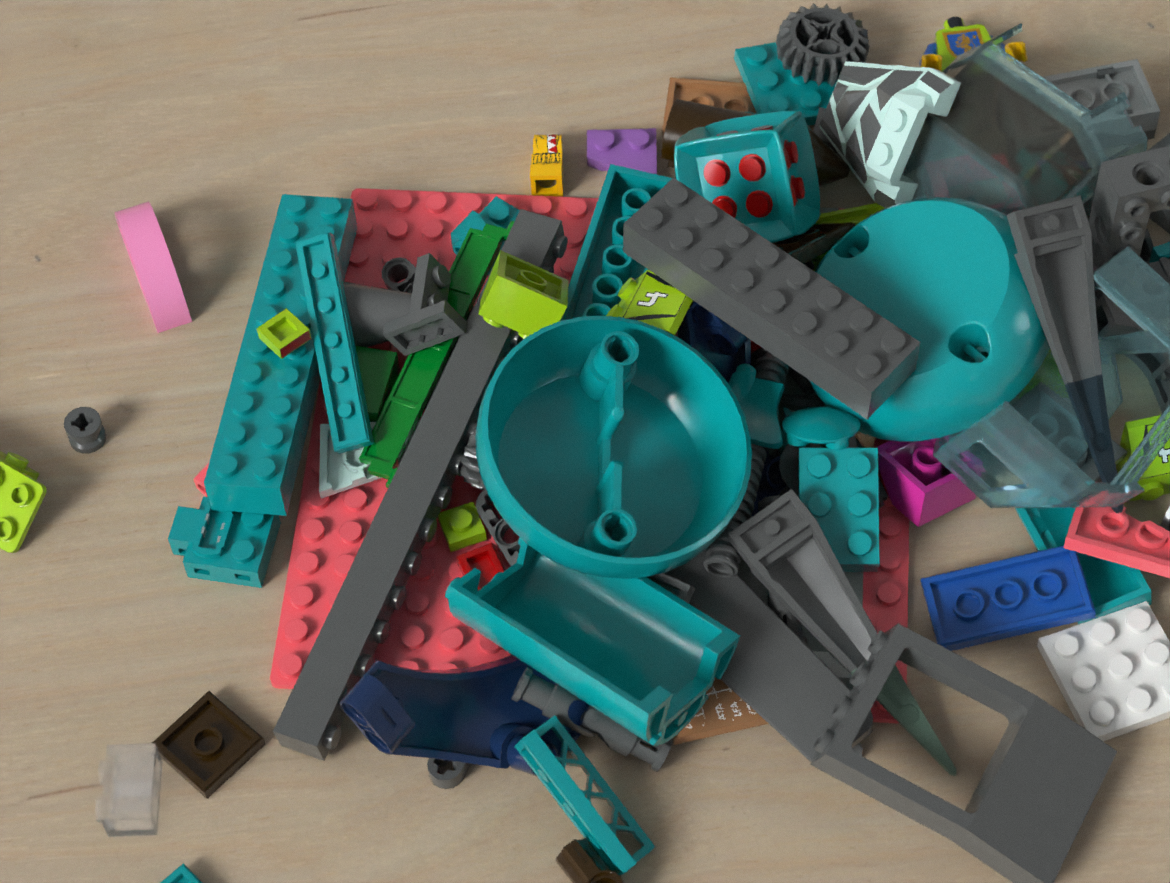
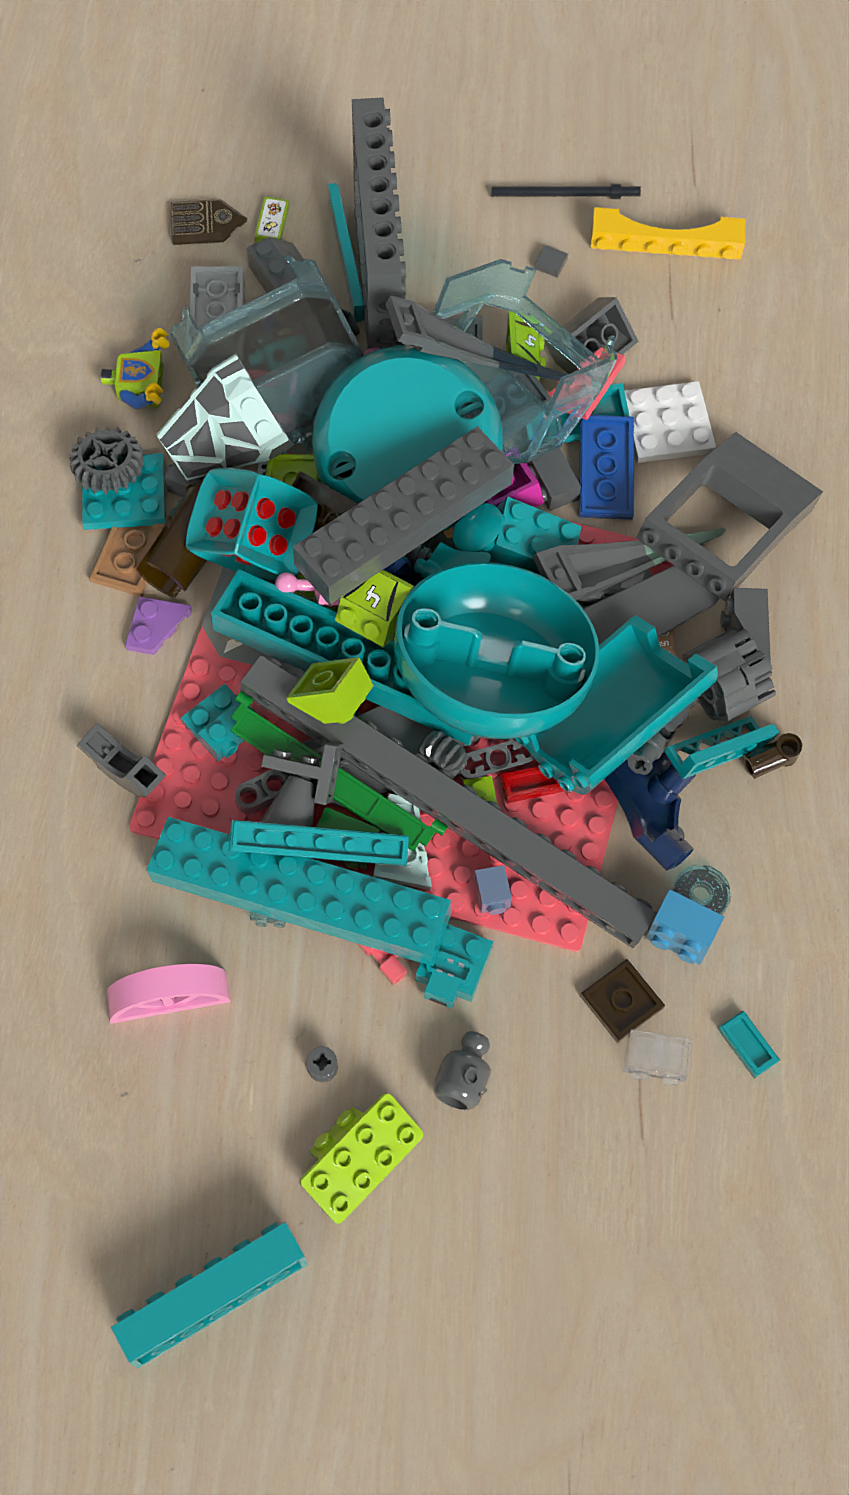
camera: 85 degrees left, 10 degrees up
(82, 572) = (464, 1073): none -> dark grey piece
(284, 333) = (310, 875): lime plate -> none
(303, 786) = (684, 928): none -> dark azure brick
(323, 557) = (492, 890): none -> sand blue brick
(377, 840) = (709, 879): none -> clear light blue tile
(429, 157) = (119, 764): none -> dark grey arch
(547, 165) = (152, 679): yellow leg -> none
(686, 777) = (737, 684): none -> dark grey piece
(776, 812) = (749, 611): none -> dark grey slope
(966, 534) = (555, 479): none -> dark grey brick

